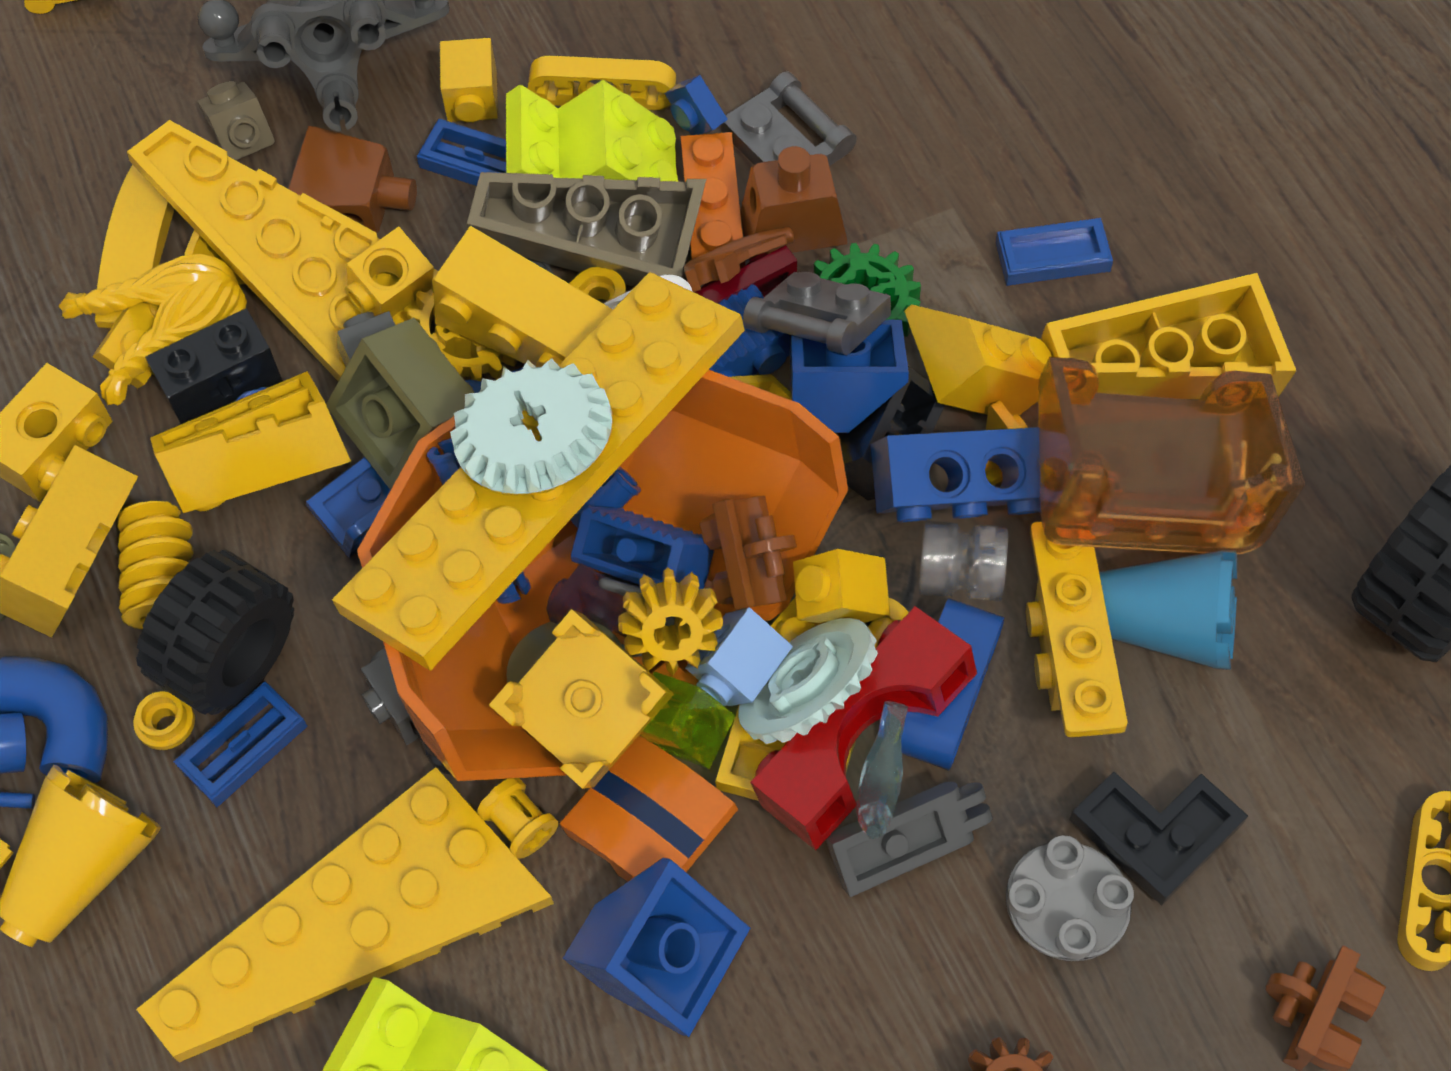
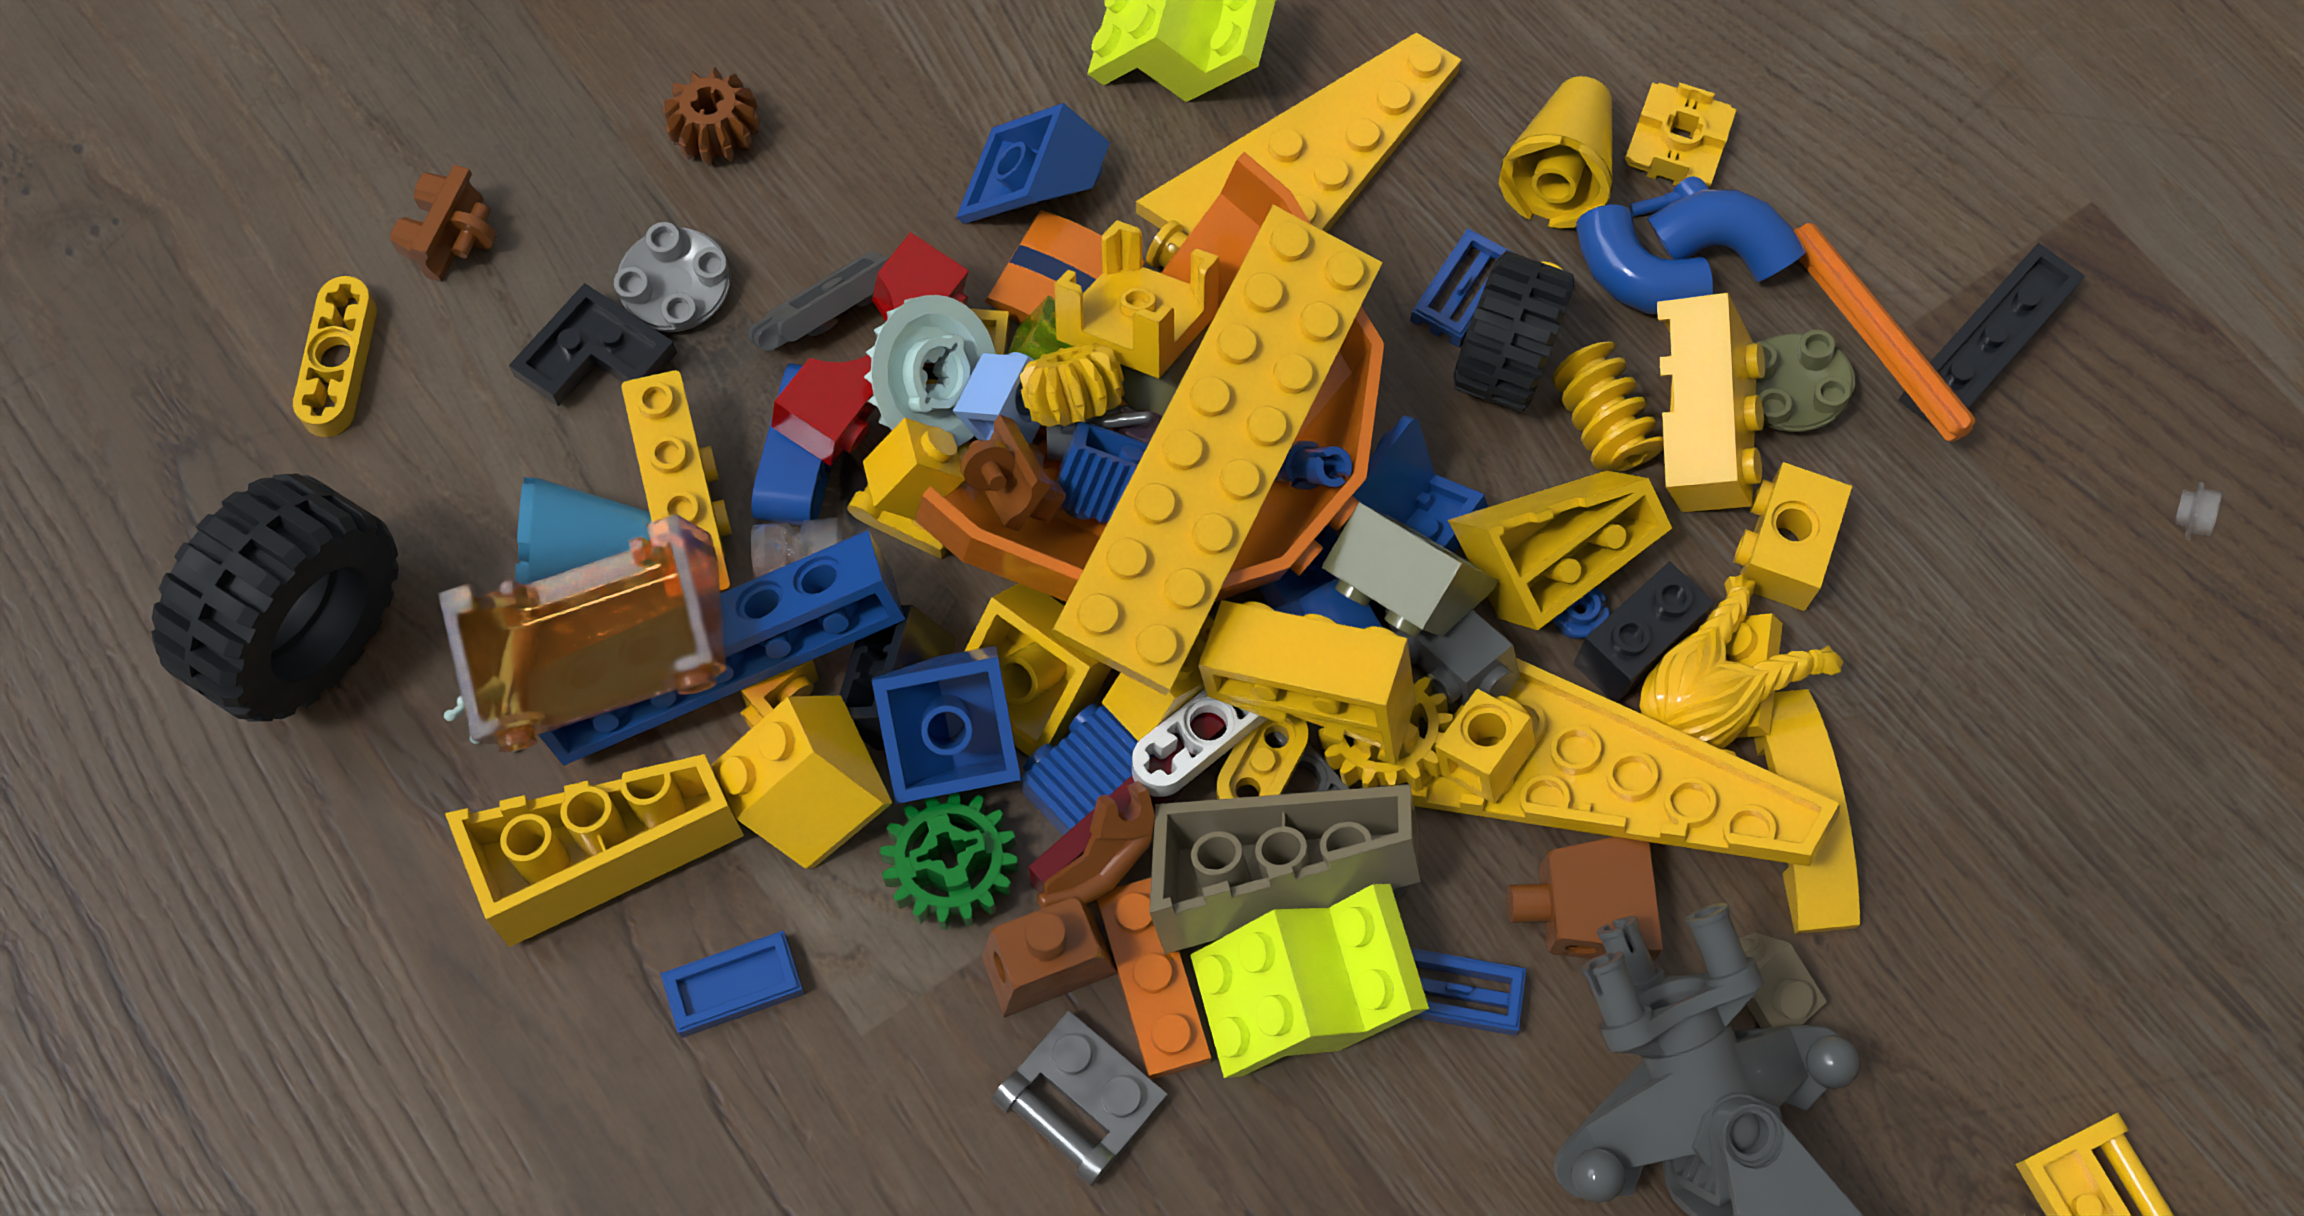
camera: 165 degrees right, 5 degrees up
(468, 80) = (1497, 1085): yellow brick -> none
(505, 455) = (1225, 481): light aqua gear -> none
(555, 76) = (1329, 1118): yellow beam -> none
(695, 106) = (1200, 1085): blue plate -> none
(819, 311) = (979, 791): flat silver plate -> none
(882, 773) = (851, 294): clear light blue piece -> none

